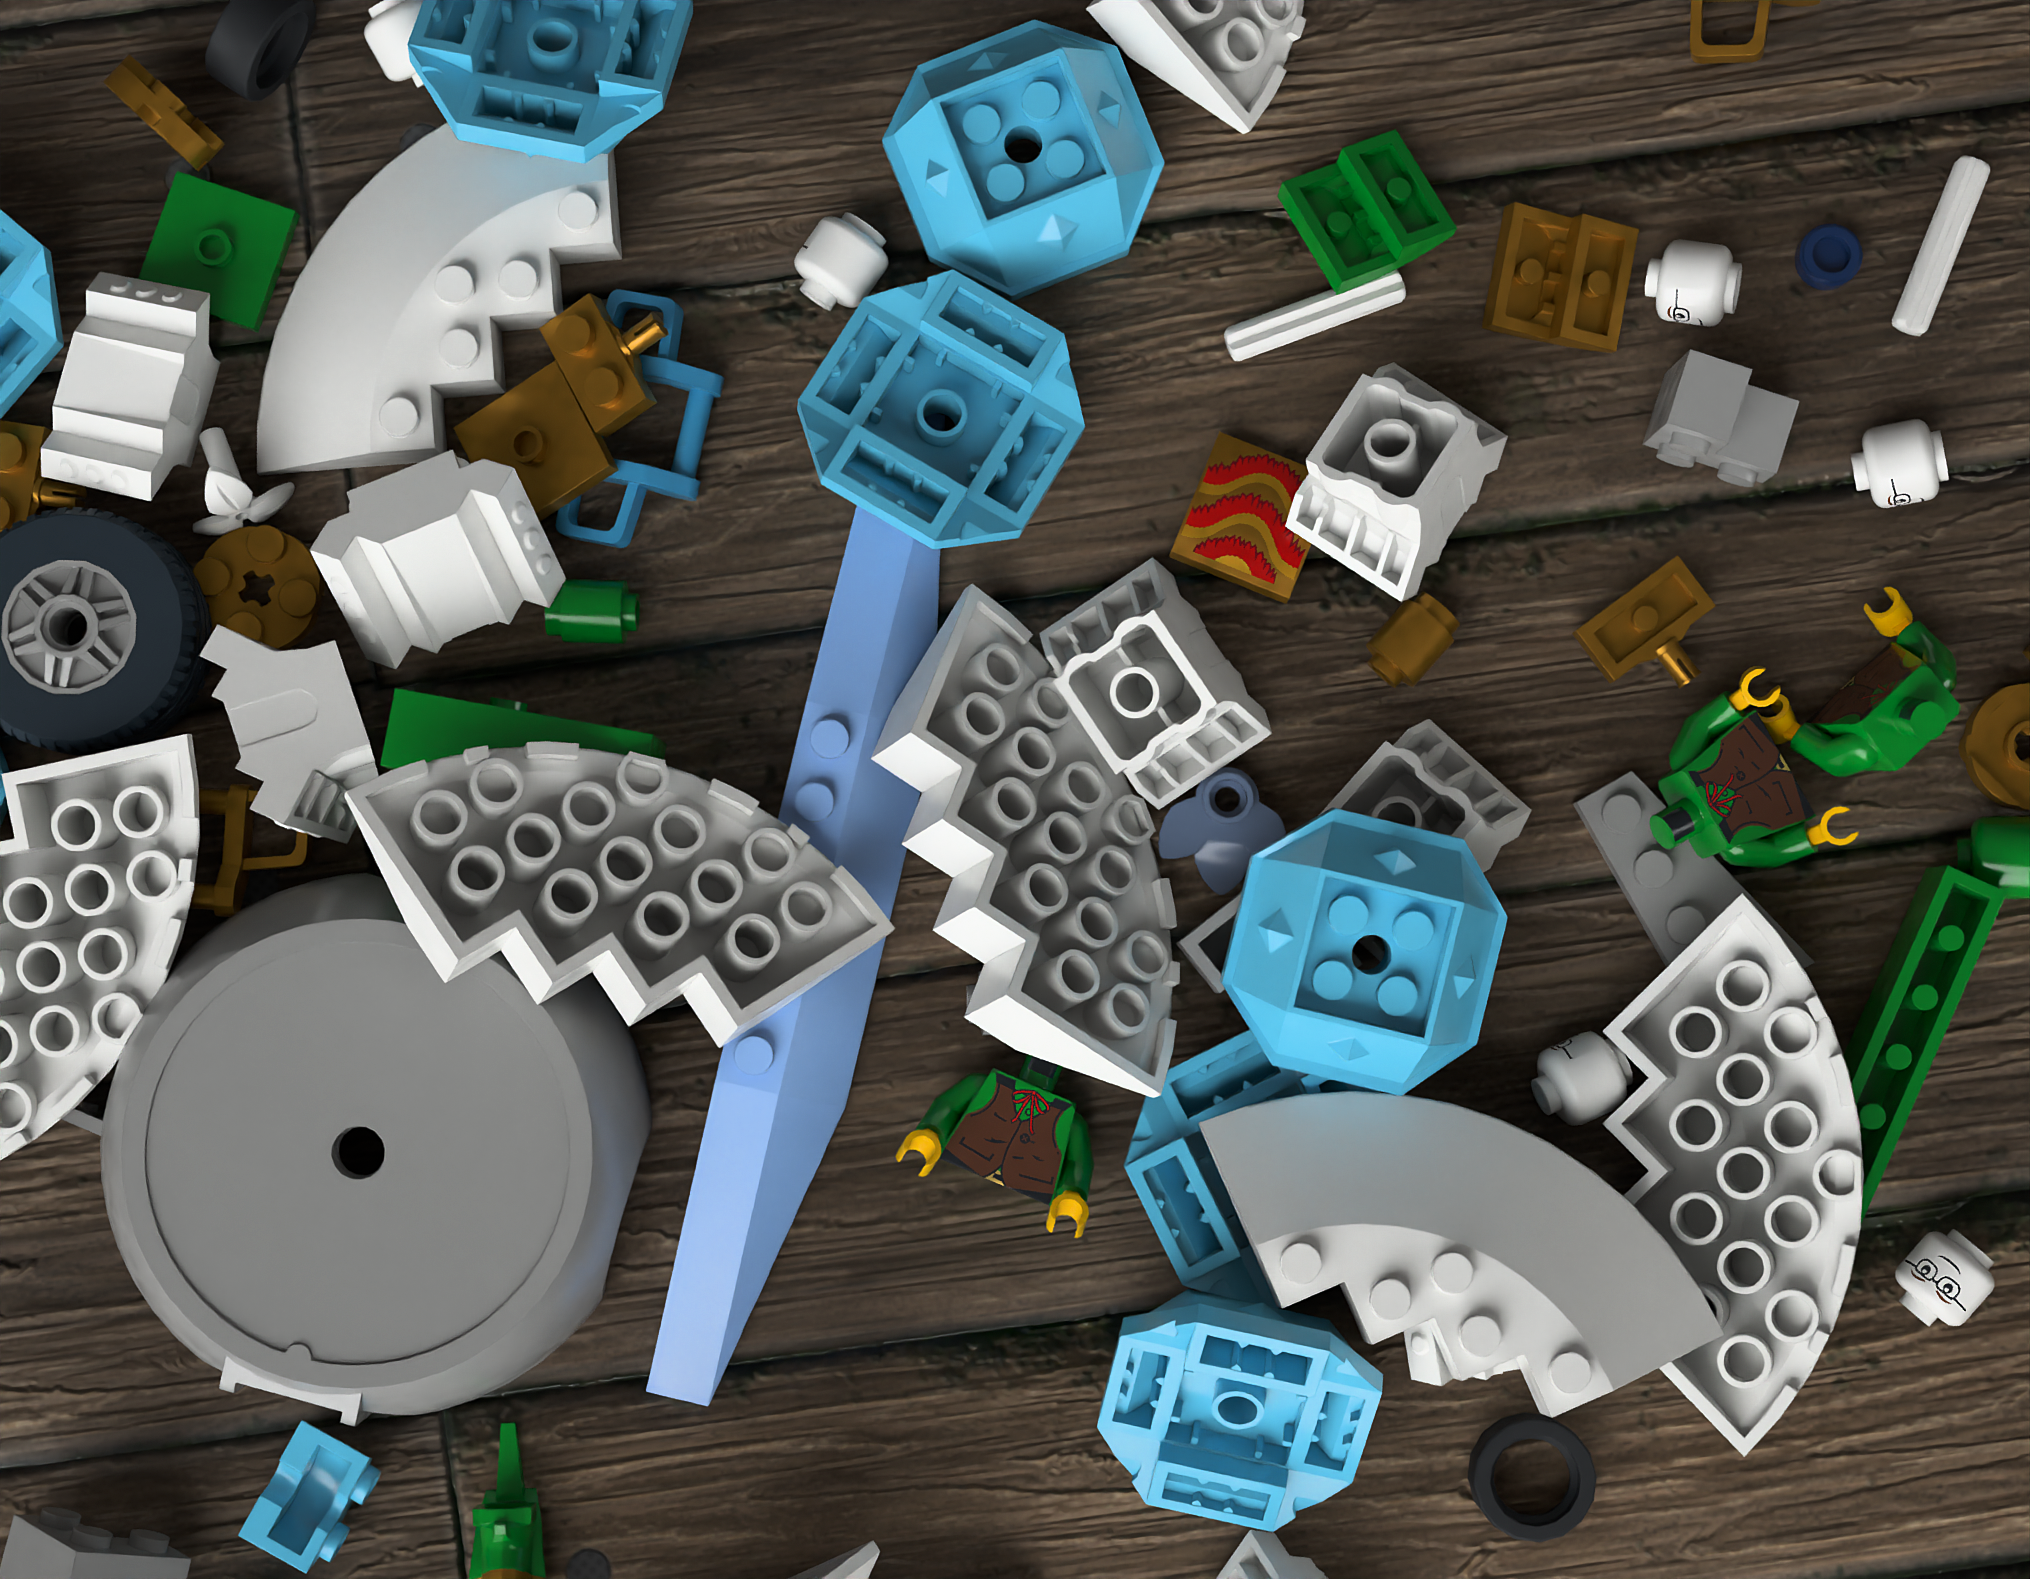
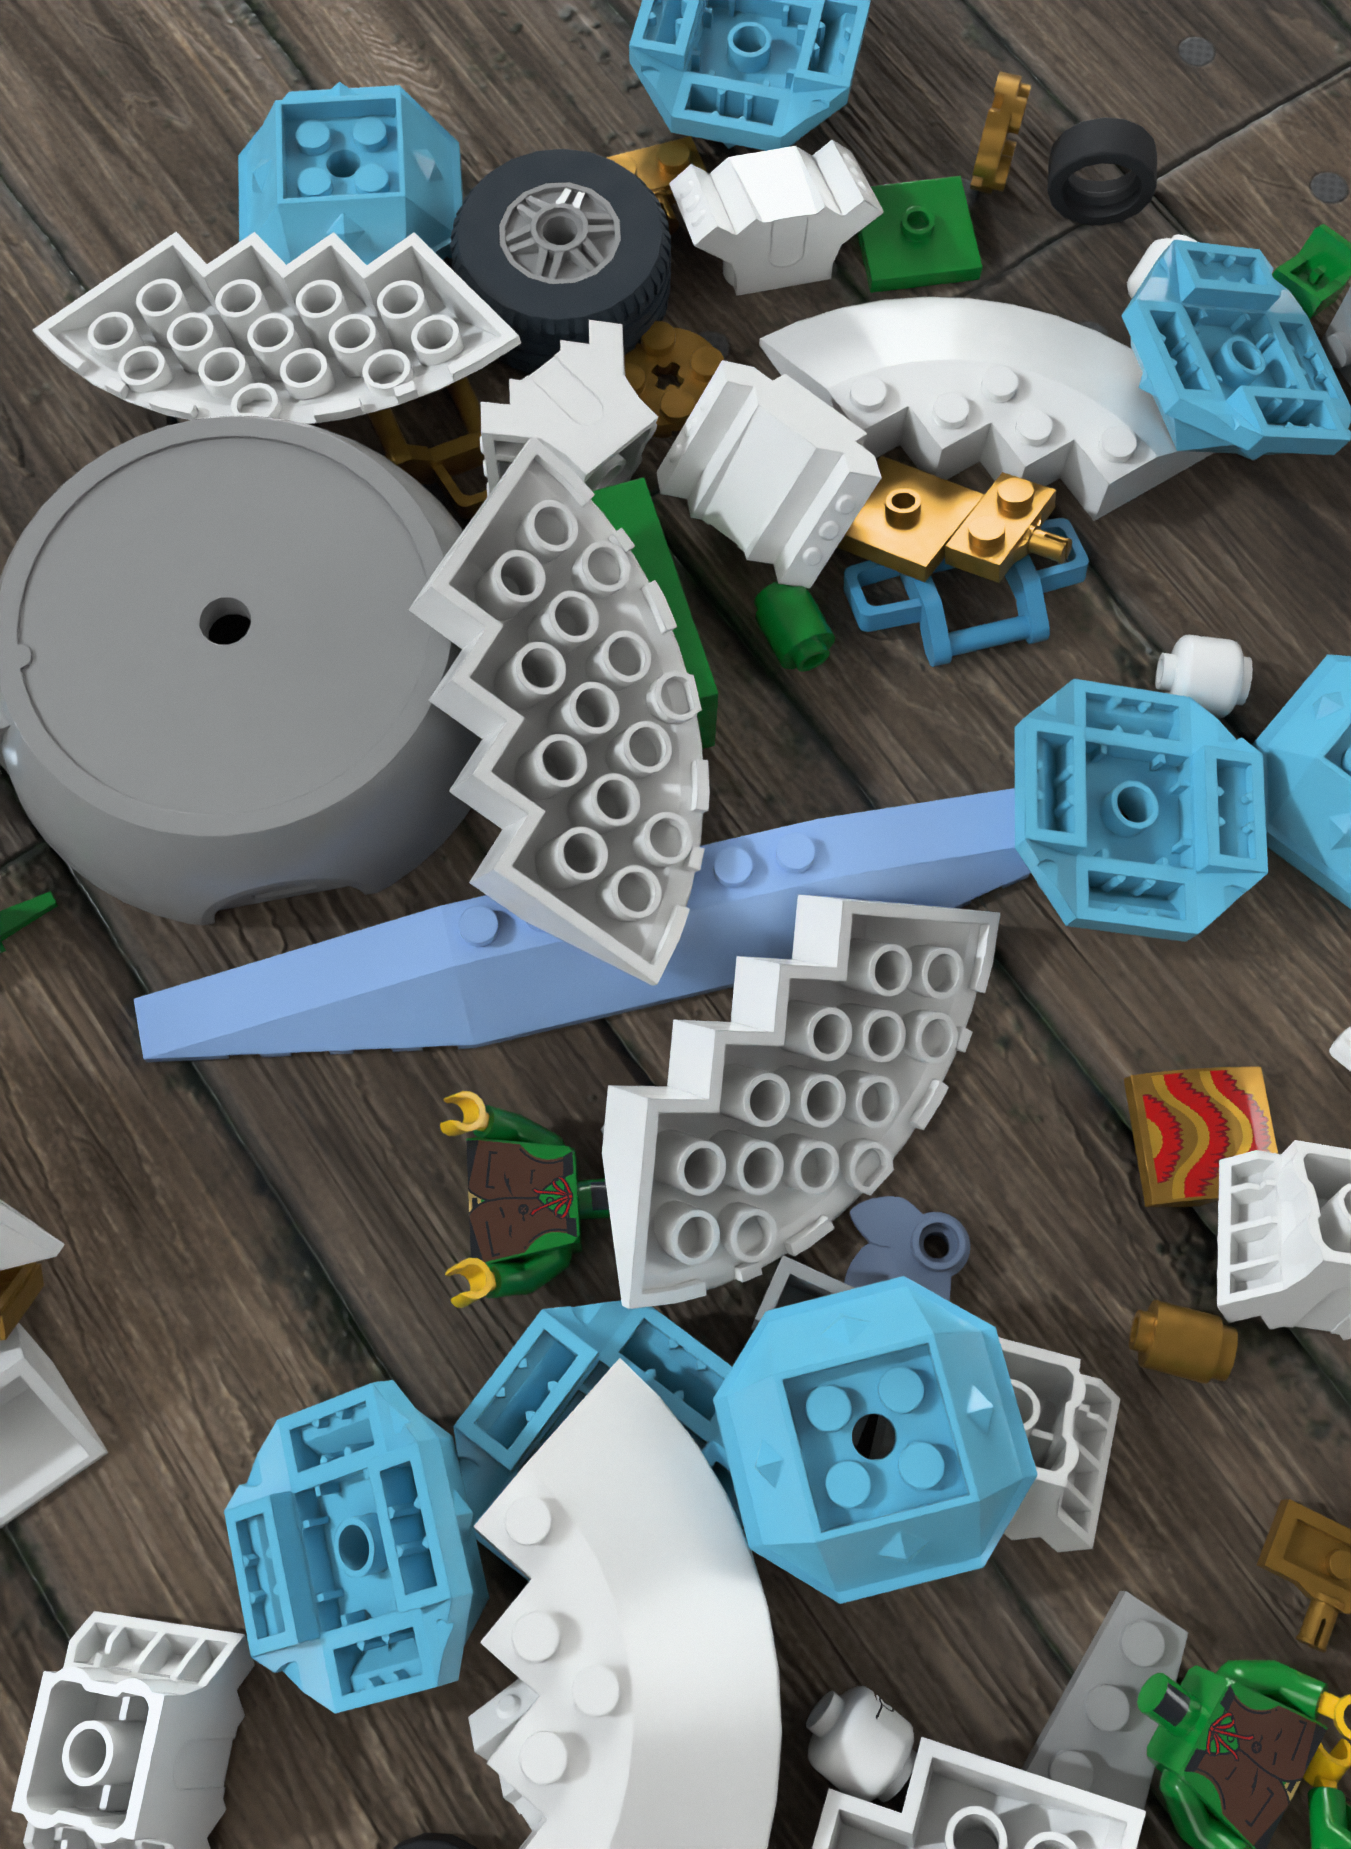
camera: 60 degrees right, 15 degrees down
(229, 495) = (732, 313): white plant -> none
(1152, 685) = (1000, 1124): white slope -> none

